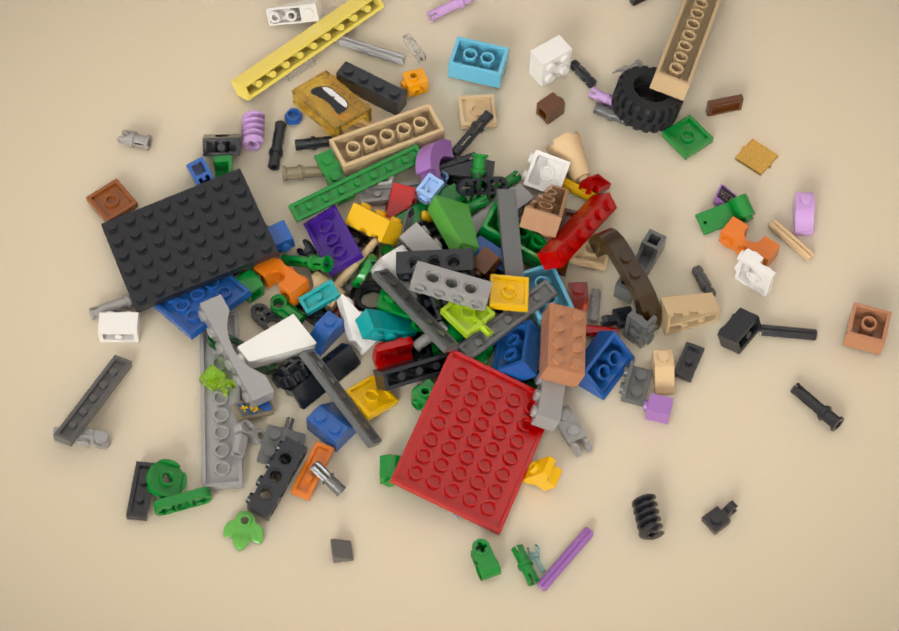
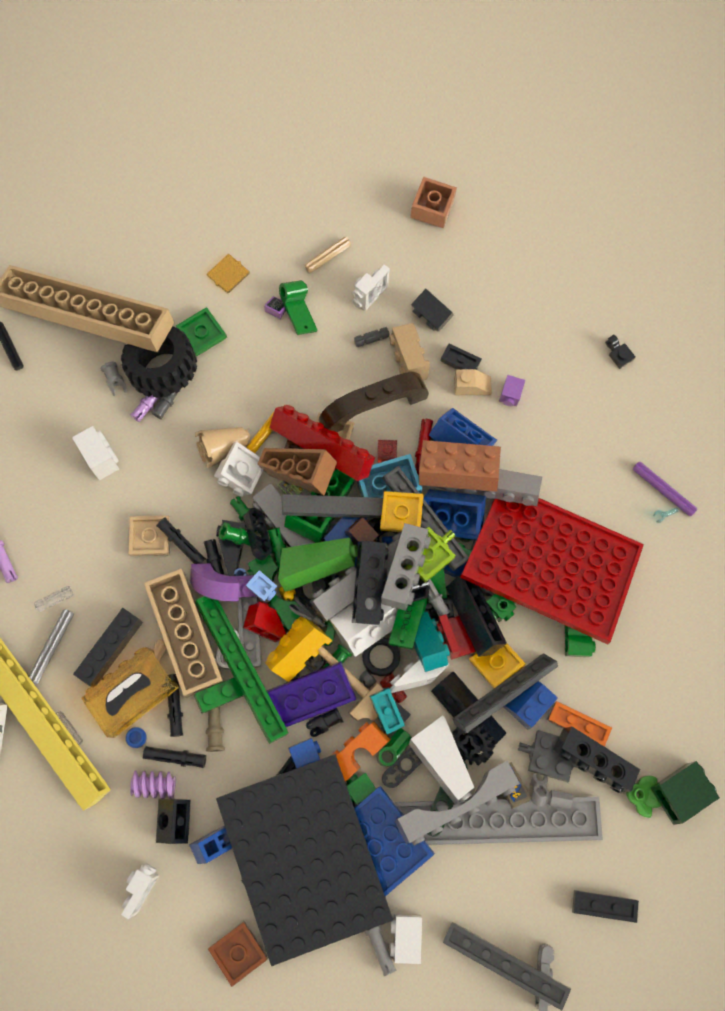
camera: 90 degrees left, 15 degrees up
(134, 139) = (152, 926): light grey piece -> none
(157, 471) = (593, 891): green plate -> none
(165, 124) = (139, 885): none -> white plate
(182, 501) = (617, 861): green beam -> none
(215, 379) = (478, 826): clear neon green plate -> none
(222, 165) = (204, 819): green panel -> none
(246, 561) = (685, 793): none -> dark green brick
(312, 262) = (343, 717): green pin -> none
(327, 331) = (422, 707): blue slope -> none
(328, 478) = (592, 707): axle -> none
(341, 550) = (663, 697): dark grey slope -> none
(364, 270) = (357, 662): green tile -> none
(414, 82) = (106, 599): light orange brick -> none
(415, 310) = (419, 609): dark grey tile -> none
(478, 62) = (87, 528): medium azure brick -> none
(485, 563) = (673, 560): green piece -> none
(525, 564) = (673, 524): green pin -> none
(543, 473) = (585, 500): yellow brick -> none
(550, 108) = (153, 459): reddish brown brick -> none
(572, 431) = (536, 467): light grey hinge -> none
(582, 73) = (111, 423): black axle -> none
(594, 183) = (254, 424): red plate -> none
(594, 306) = (407, 441): light grey axle -> none
(618, 317) = (411, 414): black plate -> none
(636, 384) = (483, 409): dark grey bracket -> none
(639, 330) = (432, 396): dark grey bracket -> none
(646, 517) = (624, 410): black piece -> none
(647, 255) = (342, 382): dark grey arch -> none
(724, 105) = (166, 291): reddish brown tile -> none
(734, 236) = (324, 302): orange arch -> none
(788, 332) = (429, 268): black axle -> none
(803, 213) = (300, 239): lavender arch -> none
(823, 412) = (515, 252): black pin -> none

